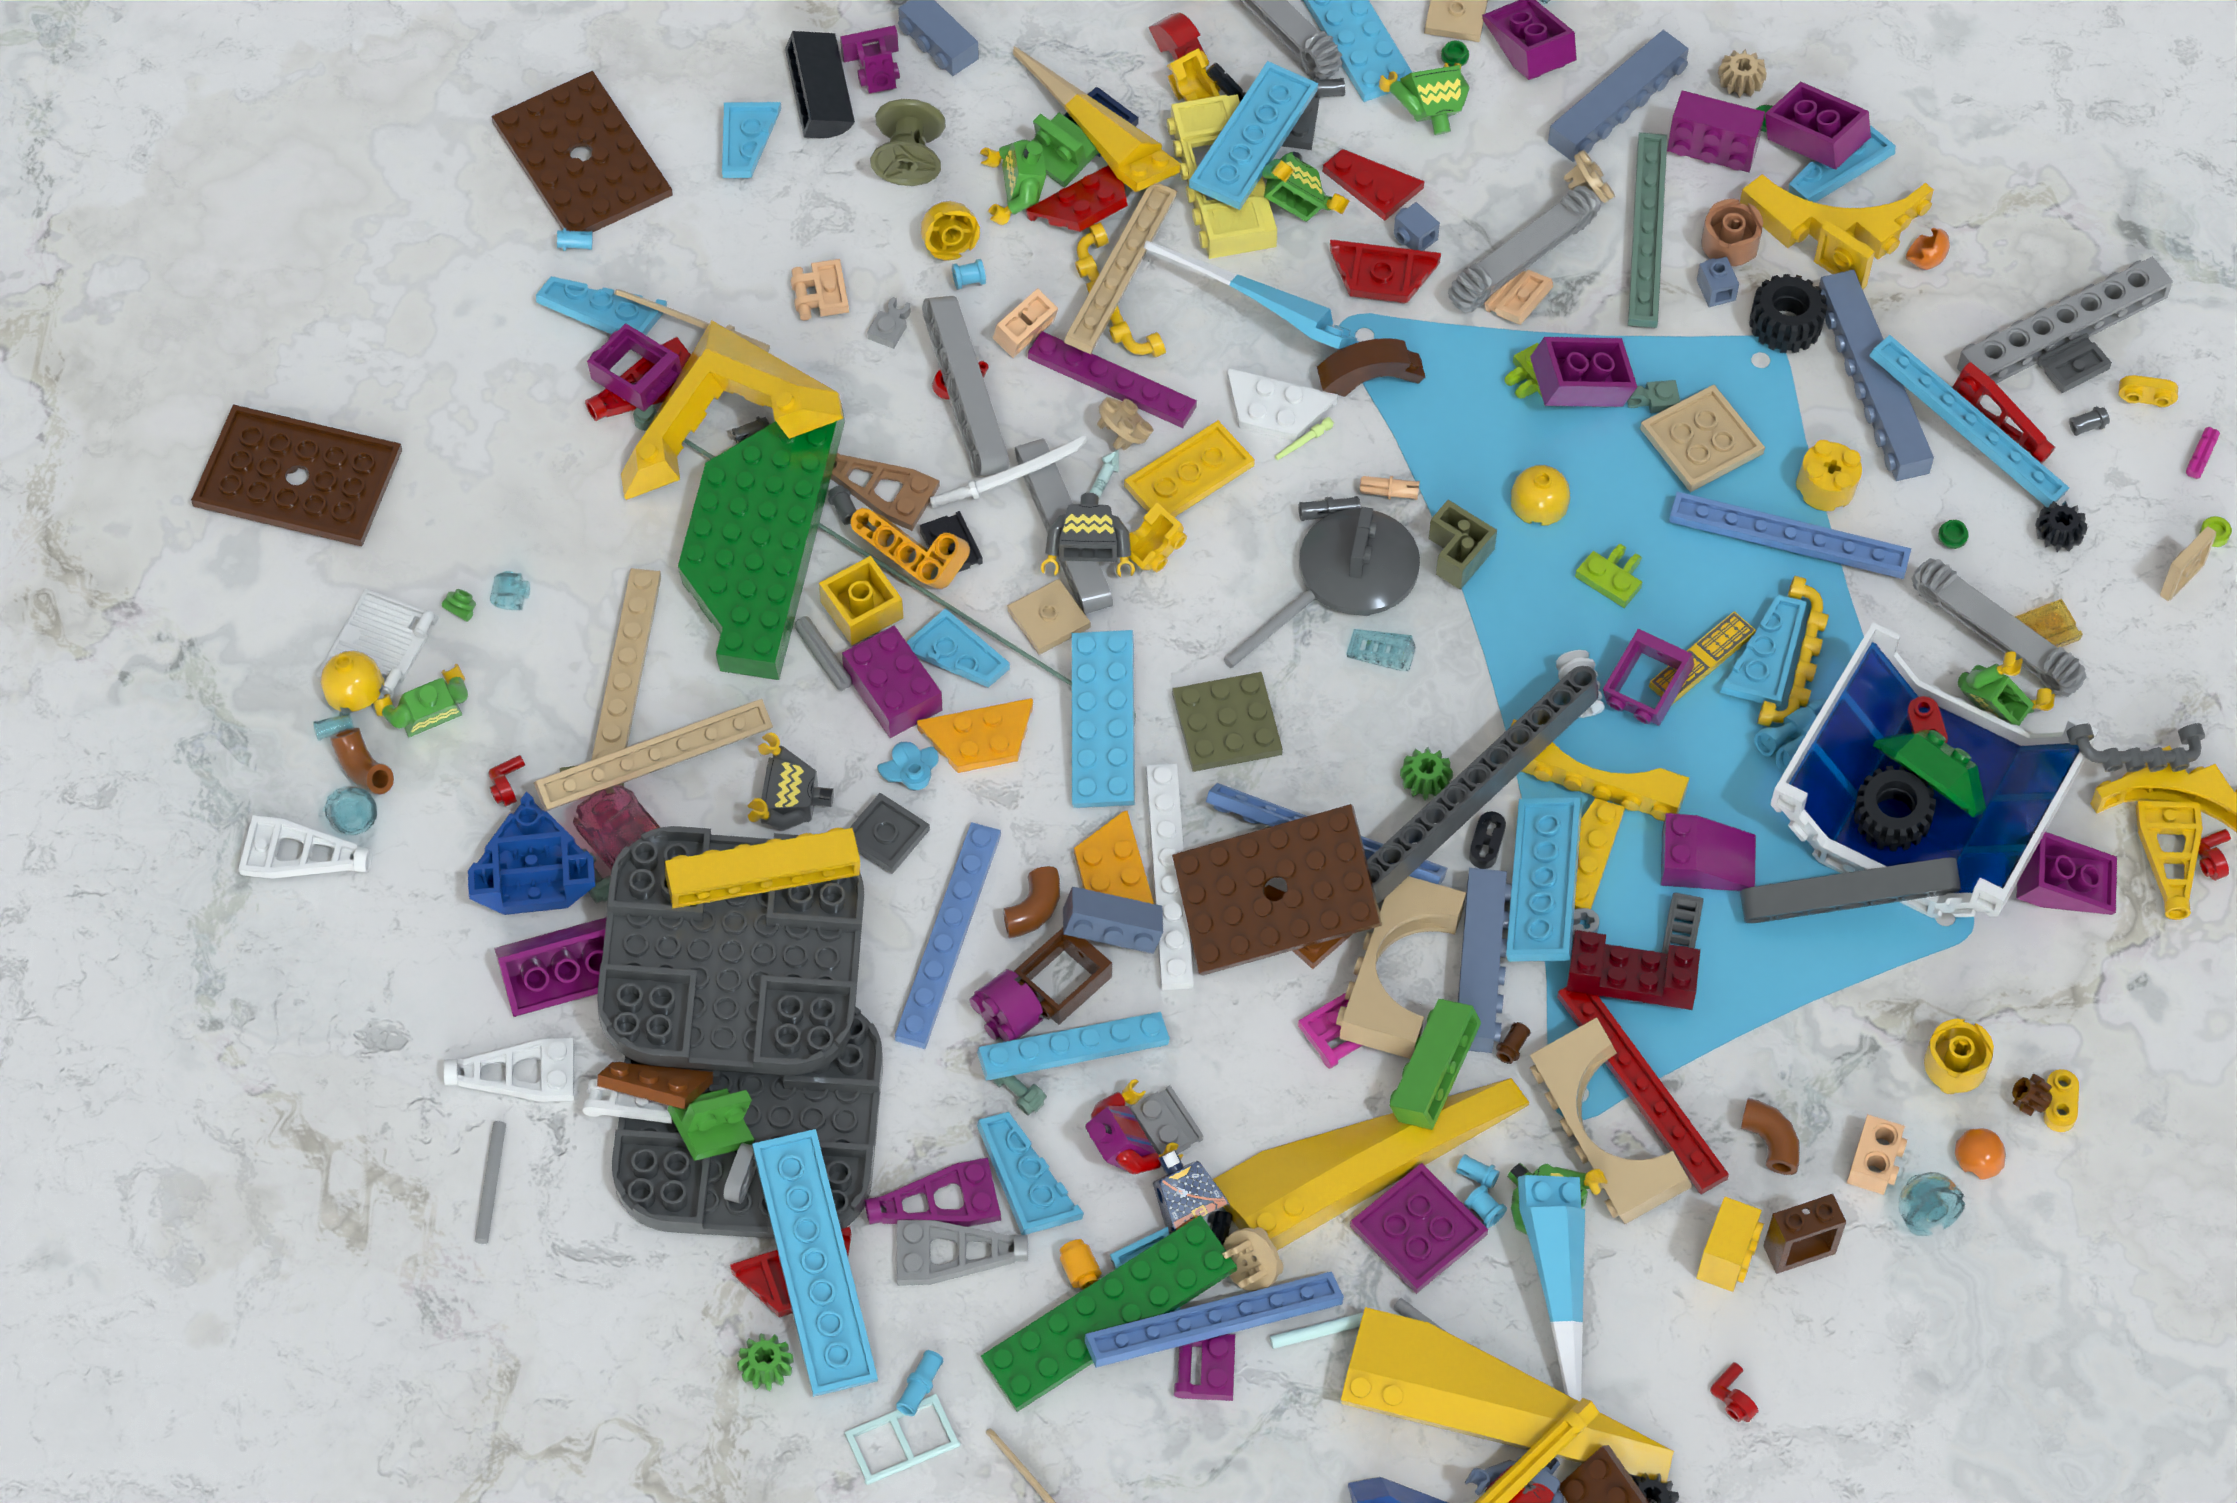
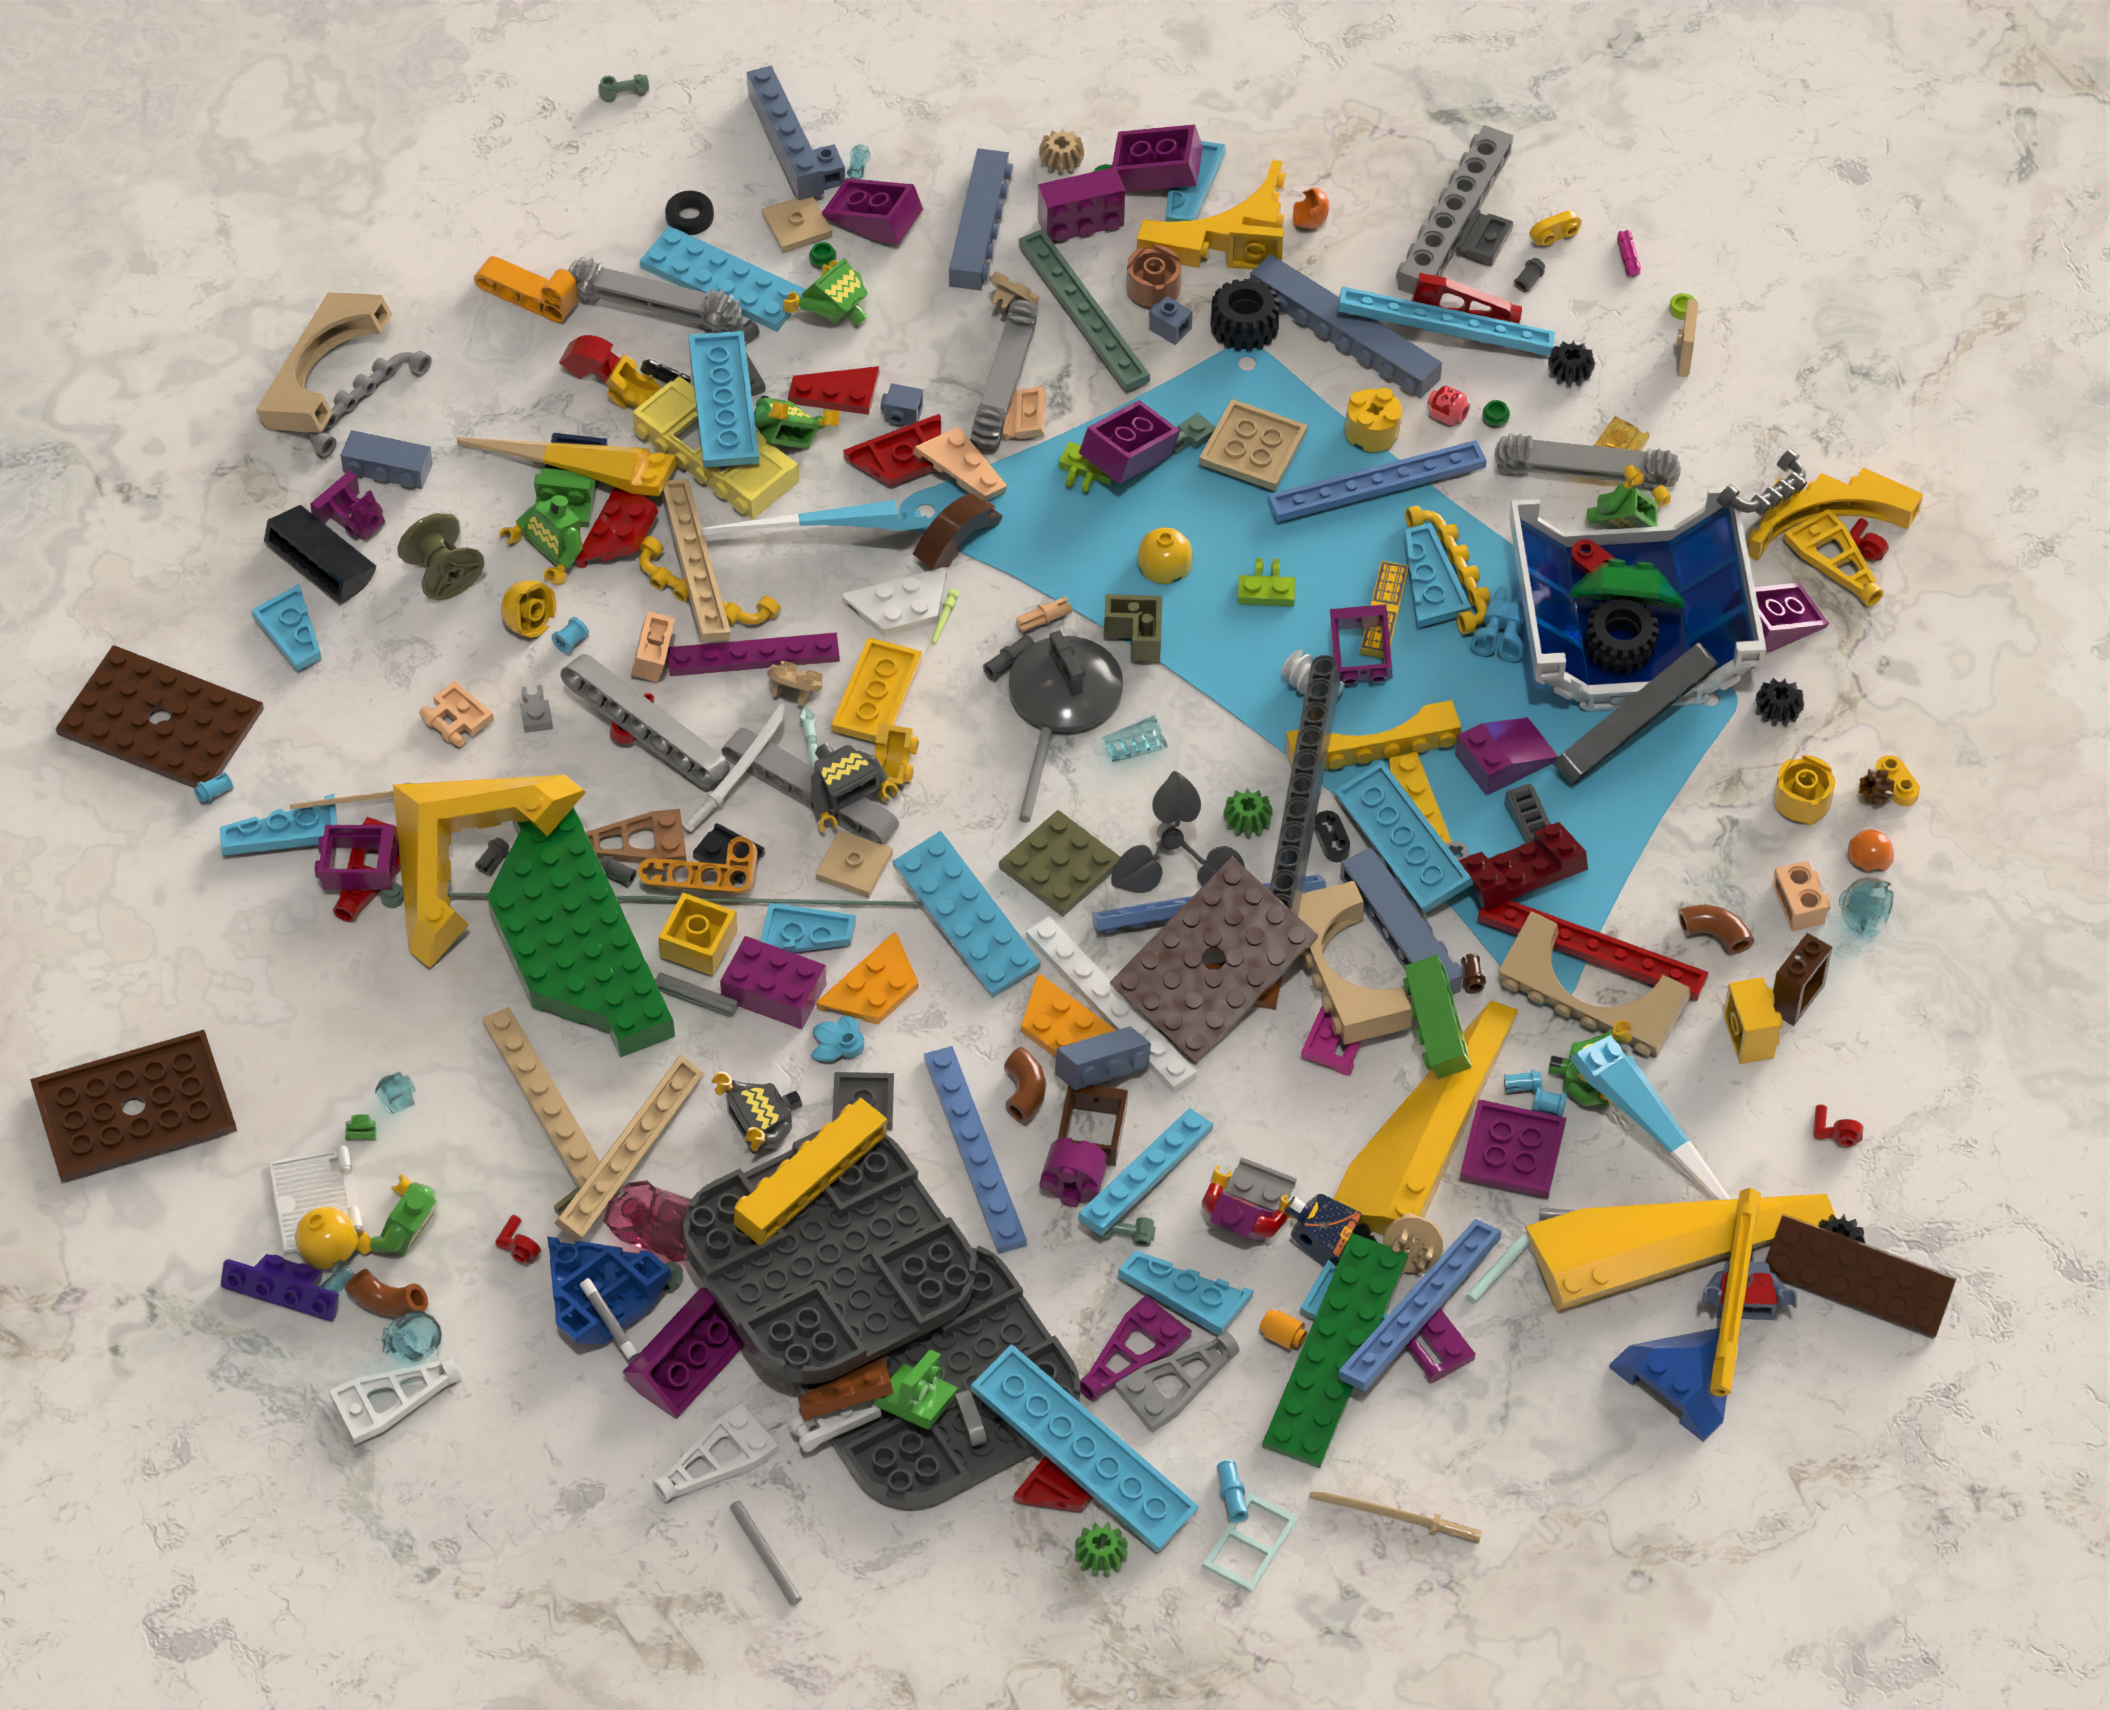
camera: 35 degrees left, 5 degrees down
(291, 699) = (282, 1284): none -> dark purple bracket
(517, 893) = (609, 1319): none -> light grey bar
(1348, 729) = (1172, 803): none -> dark grey plant
(1426, 309) = (962, 461): none -> light nougat wing
(1913, 502) = (1448, 405): none -> coral head
(2016, 958) = (1779, 701): none -> black gear

